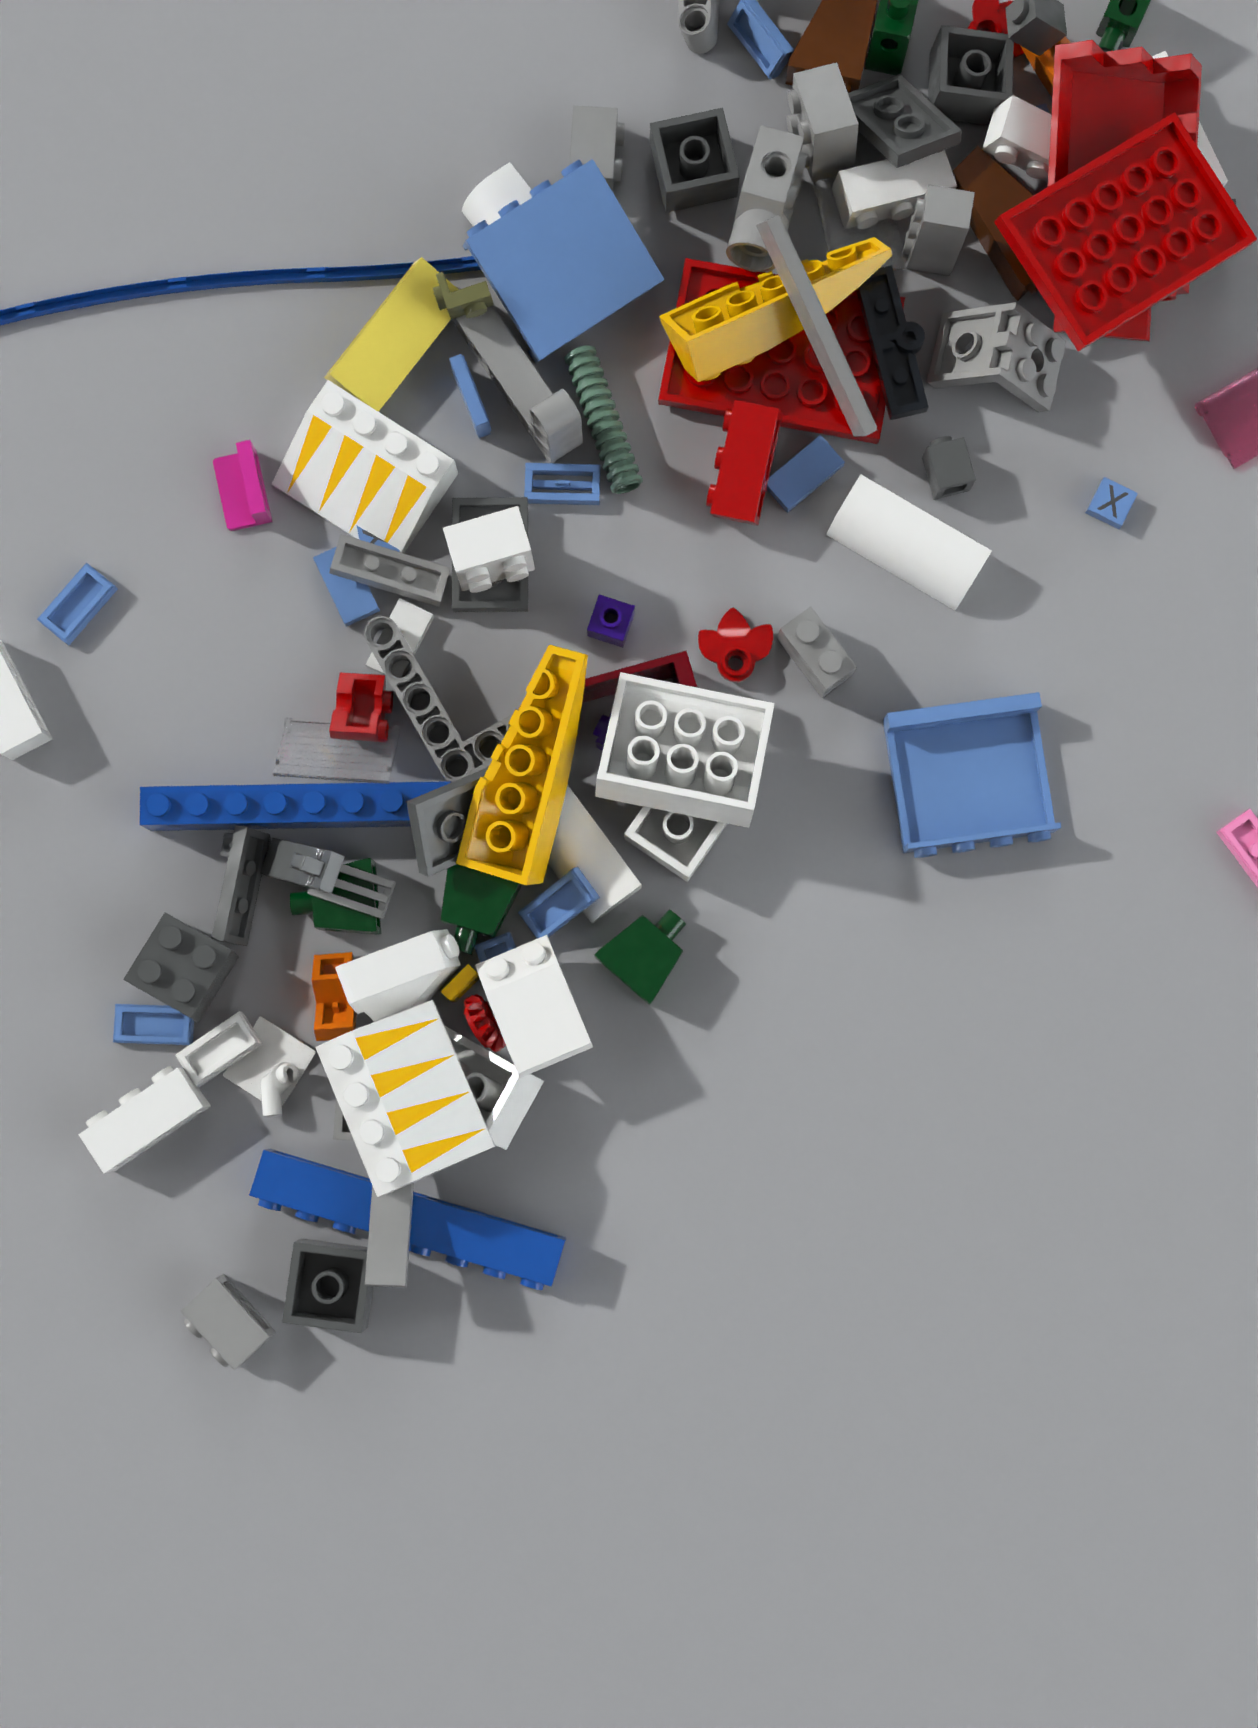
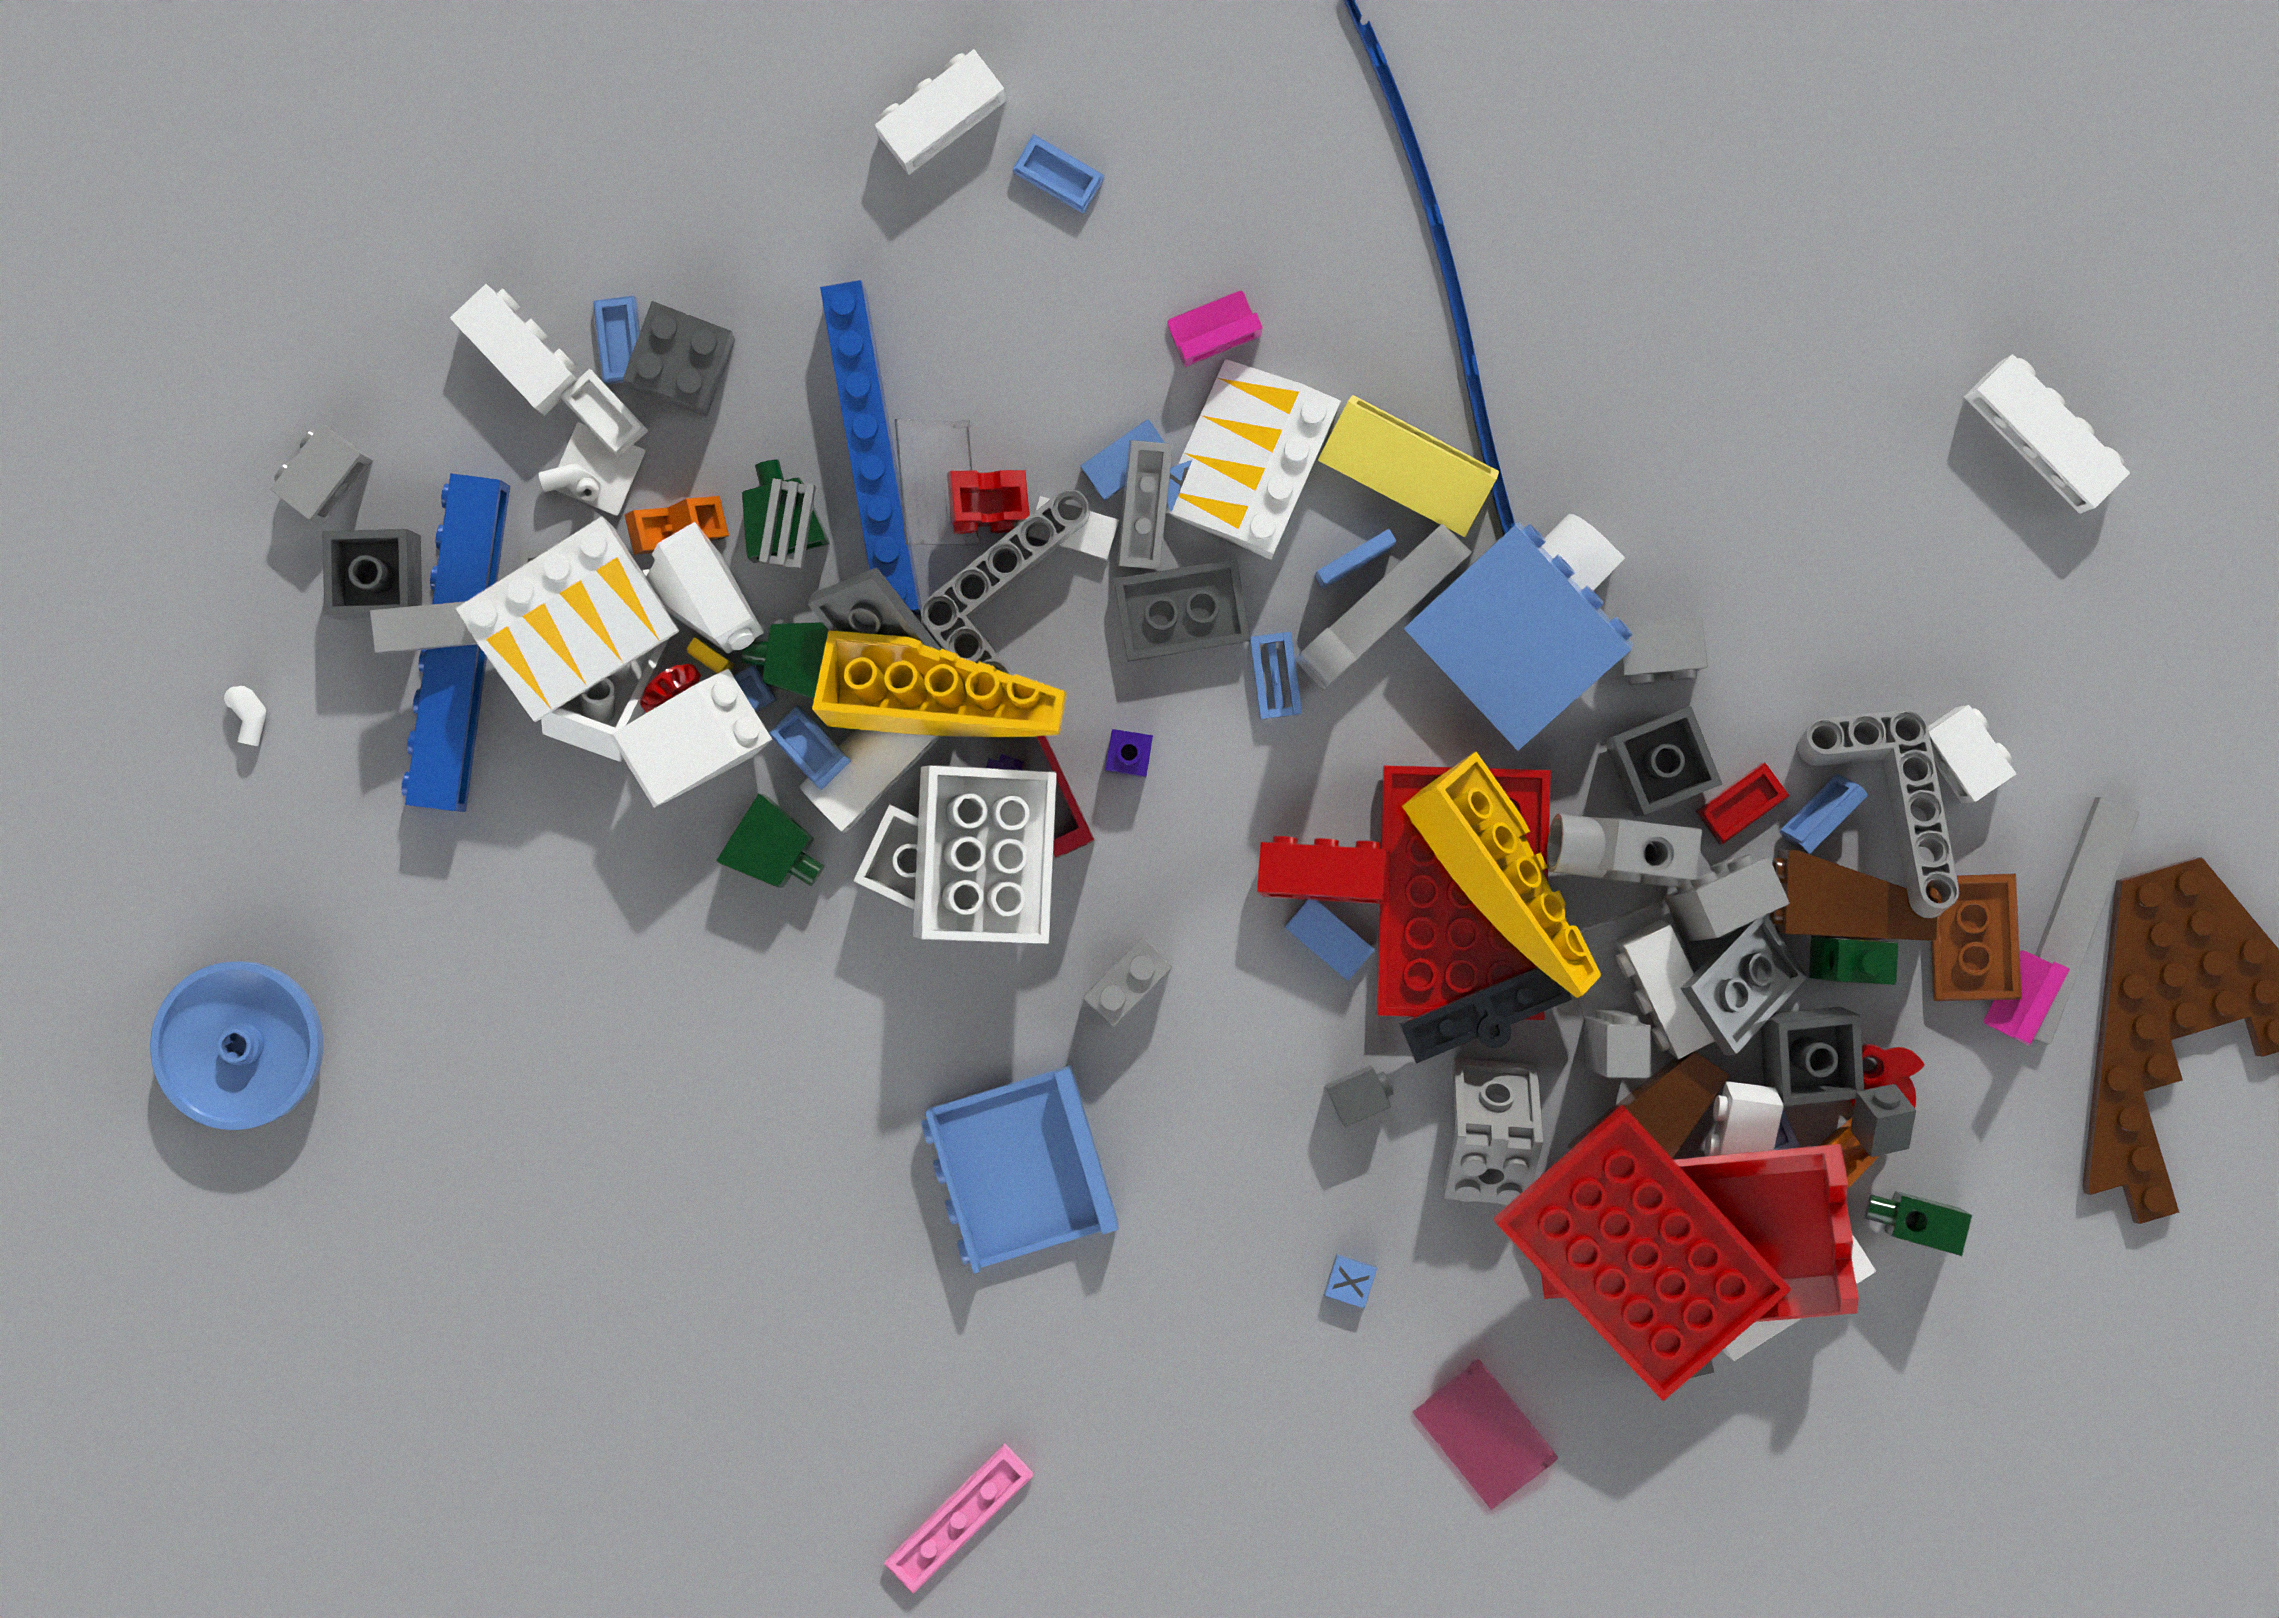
camera: 80 degrees right, 5 degrees up
(241, 884) = (775, 405): dark grey hinge -> none
(302, 865) = (803, 467): dark grey hinge -> none
(438, 1426) = (249, 710): none -> white arm
(467, 301) = (1452, 542): olive bracket -> none
(490, 549) = (1174, 609): white brick -> none
(603, 419) = (1353, 708): sand green piece -> none
(735, 640) = (1131, 890): red plate -> none
(740, 104) = (1742, 803): none -> red tile
(752, 1485) = (236, 1045): none -> medium blue dish
(816, 326) = (1477, 926): light grey tile -> none
(908, 542) = (1267, 1064): white brick -> none

